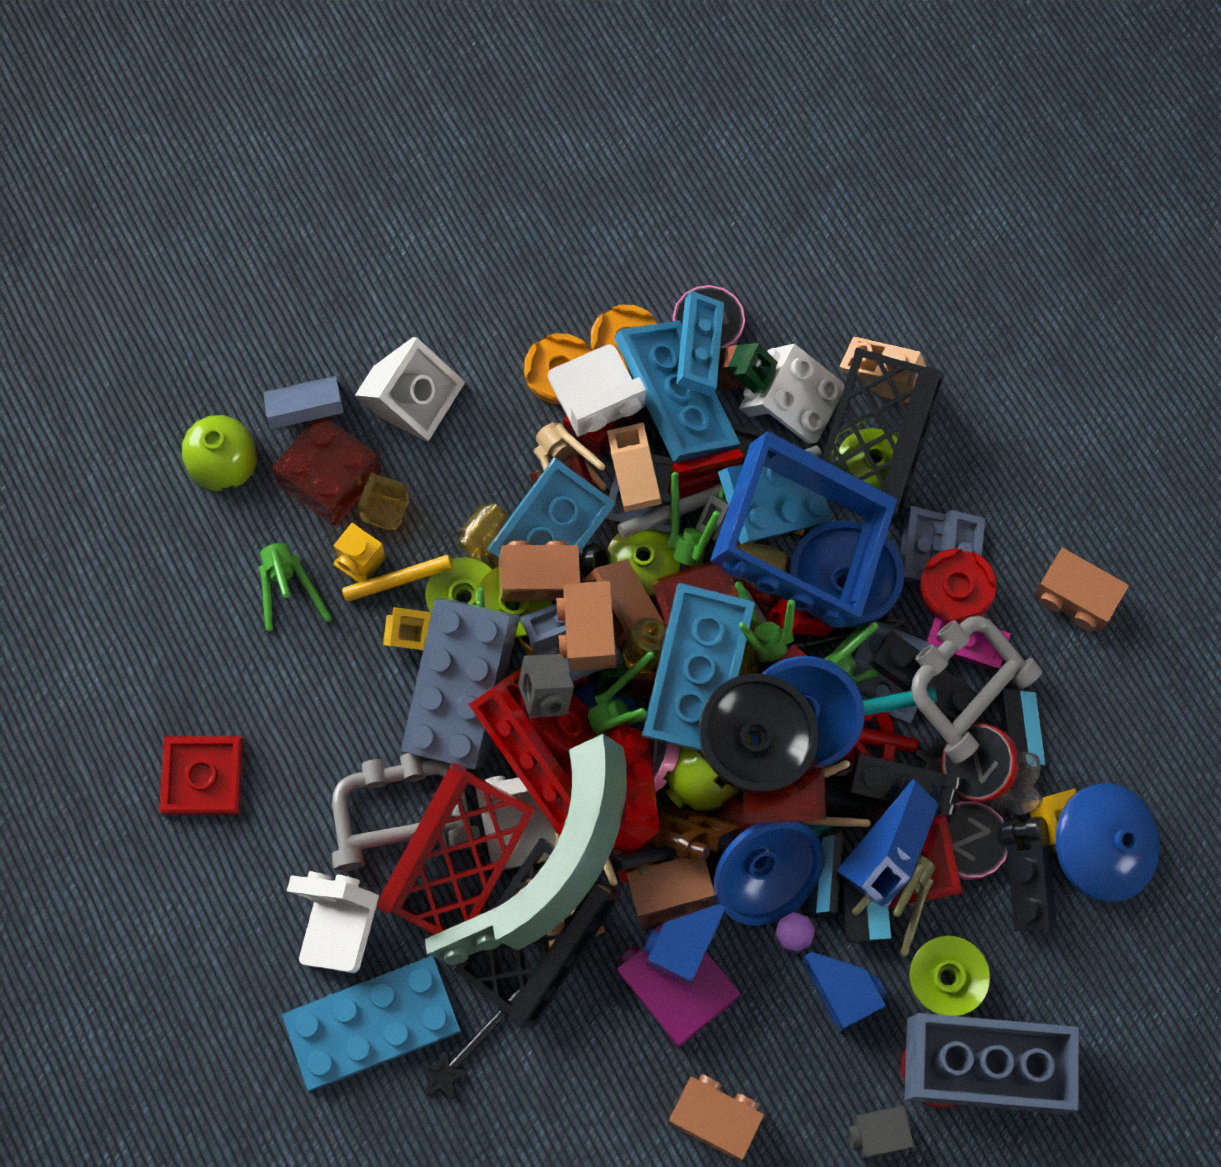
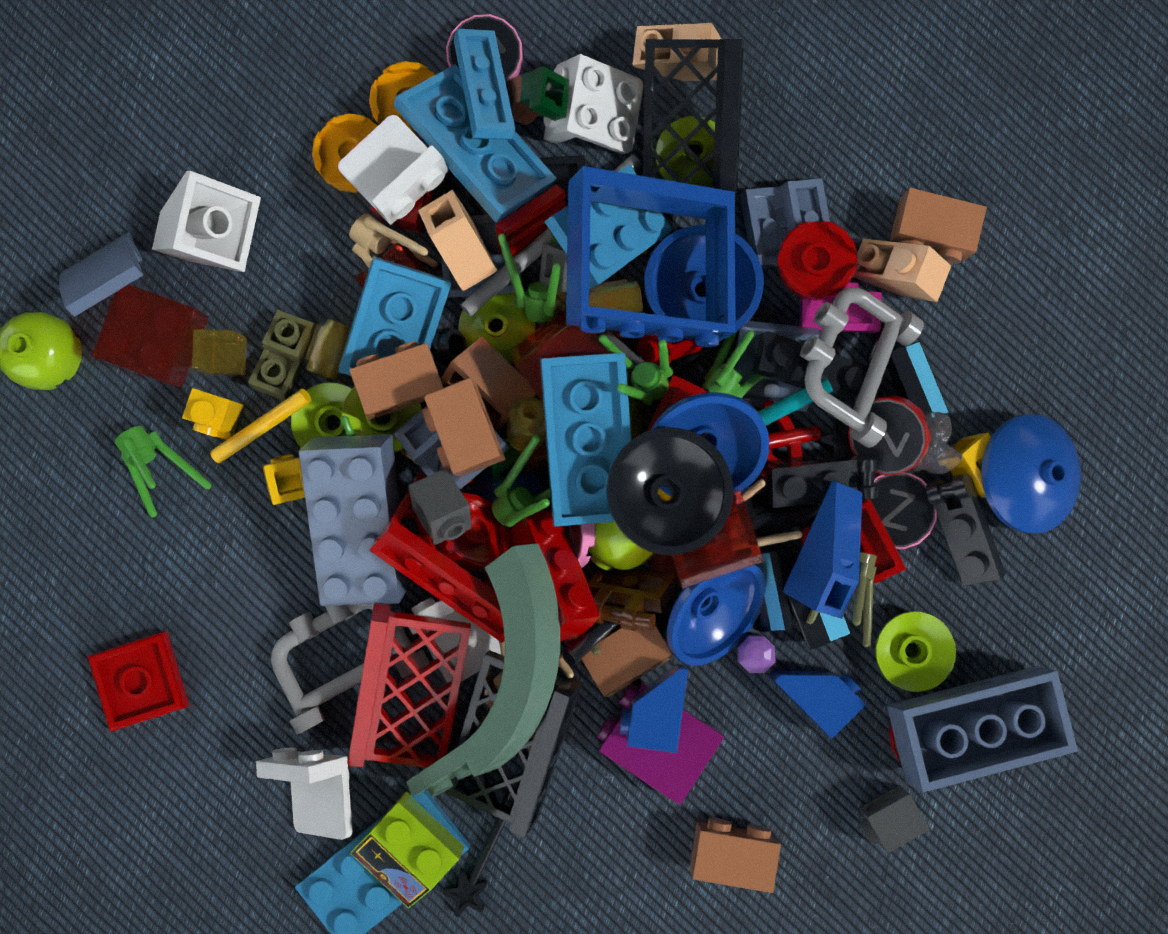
camera: 10 degrees left, 15 degrees up
(402, 1005) = (408, 850): none -> lime slope
(438, 524) = (282, 356): none -> olive slope
(1036, 619) = (902, 268): none -> light nougat slope

